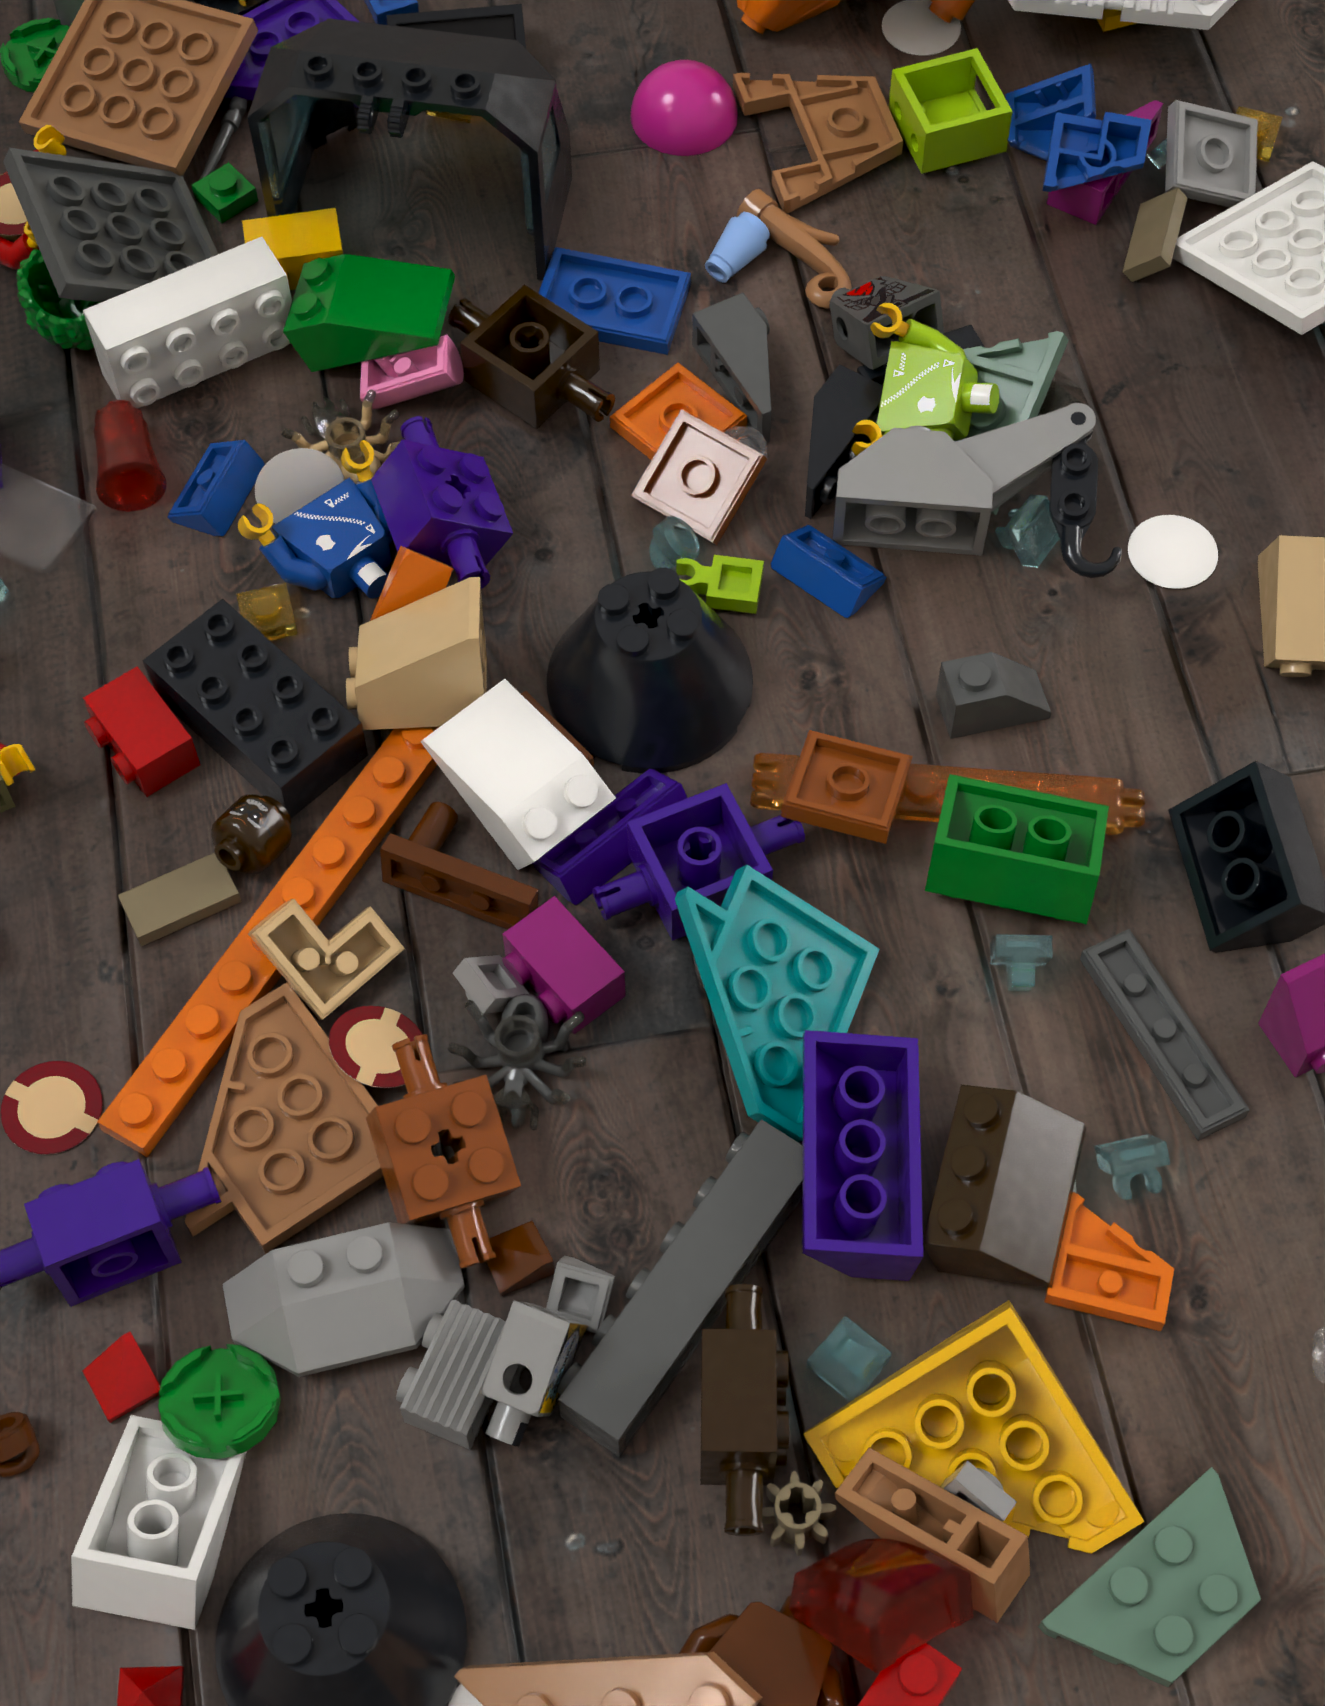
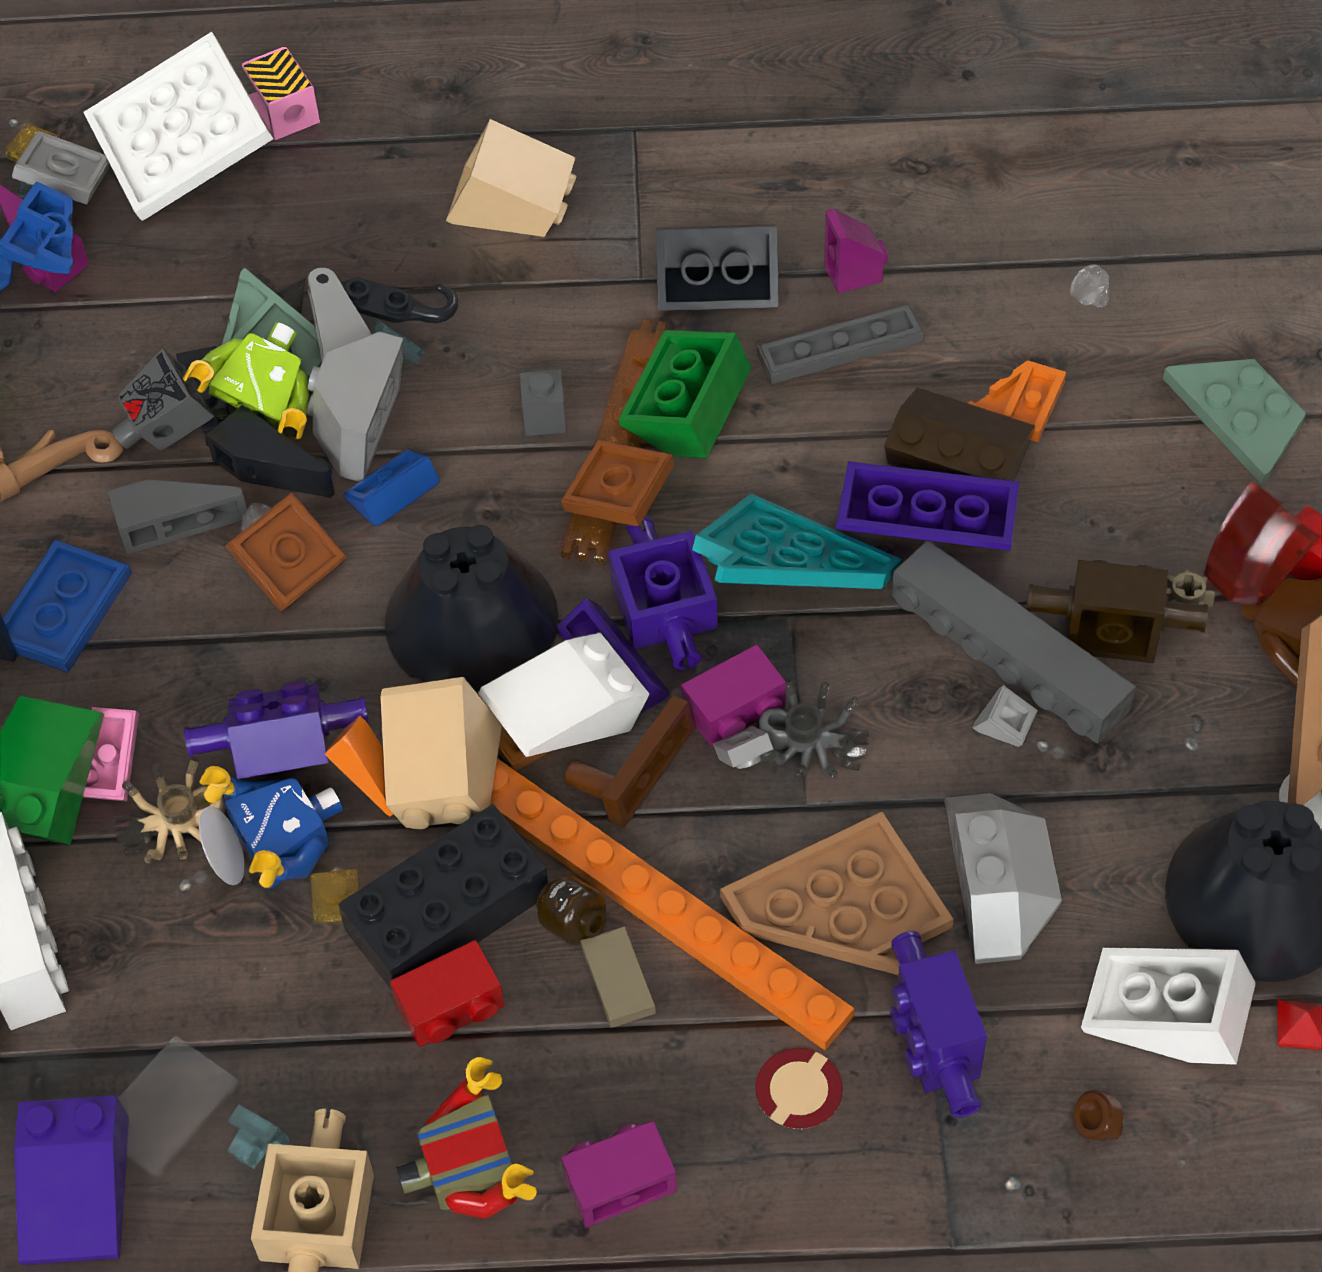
camera: 80 degrees left, 5 degrees down
(121, 1378) = (1047, 1034): red slope -> none
(126, 461) = (134, 995): clear red plant -> none
(217, 488) = (180, 932): blue slope -> none
(219, 1401) = (1076, 960): green tile -> none
(320, 968) = (703, 860): tan brick -> none
(364, 1041) = (784, 832): sticker -> none
(427, 1185) = (896, 778): dark orange brick -> none
(448, 1385) = (1068, 794): light grey brick -> none
(520, 1258) = (973, 754): reddish brown slope -> none
(531, 357) = (125, 655): dark brown brick -> none
(544, 1345) = (1072, 737): light grey torso -> none
(652, 412) = (205, 571): orange tile -> none
(674, 541) = (345, 578): clear light blue tile -> none
(728, 584) = (392, 549): lime plate -> none
(738, 245) = (37, 500): light blue cone -> none
(849, 1359) = (1063, 556): clear light blue tile -> none
(918, 1512) = (1199, 517): medium nougat slope -> none
(980, 1490) = (1187, 488): light grey plate -> none
(1002, 1409) = (1132, 482): yellow slope -> none
(1021, 956) = (774, 408): clear light blue tile -> none
(1131, 1157) = (942, 370): clear light blue tile -> none
(1155, 235) = (124, 221): dark tan tile -> none
(1172, 551) = (425, 267): white sticker -> none

